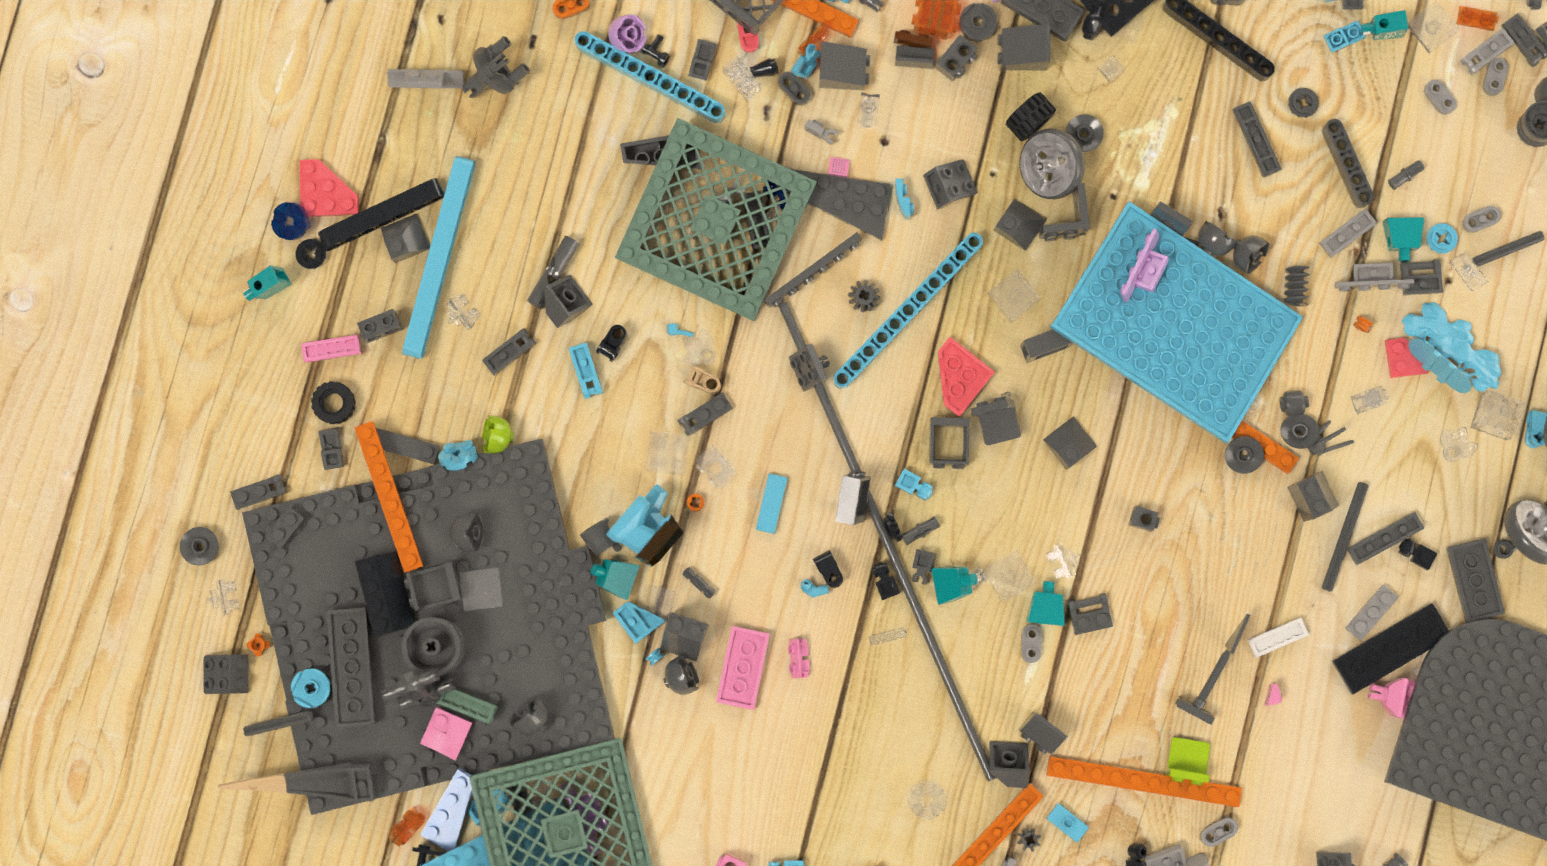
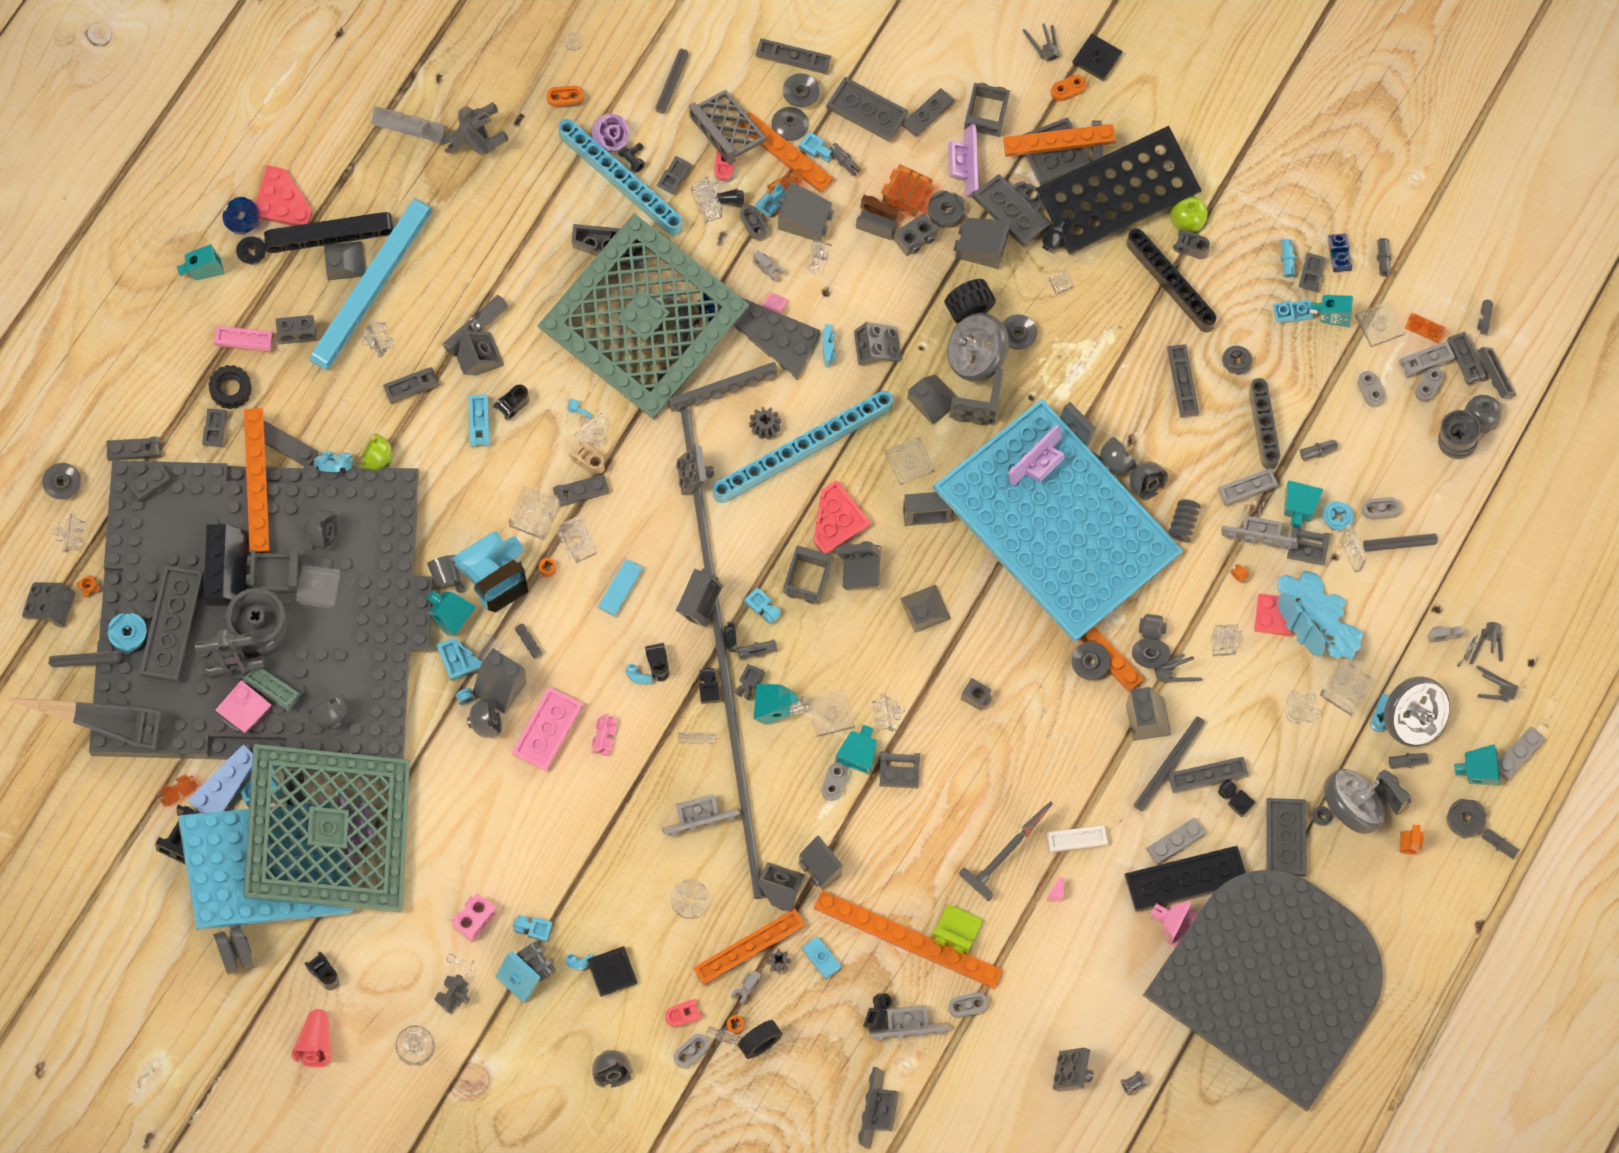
camera: 10 degrees right, 15 degrees down
(912, 713) = (698, 812): none -> light grey bracket

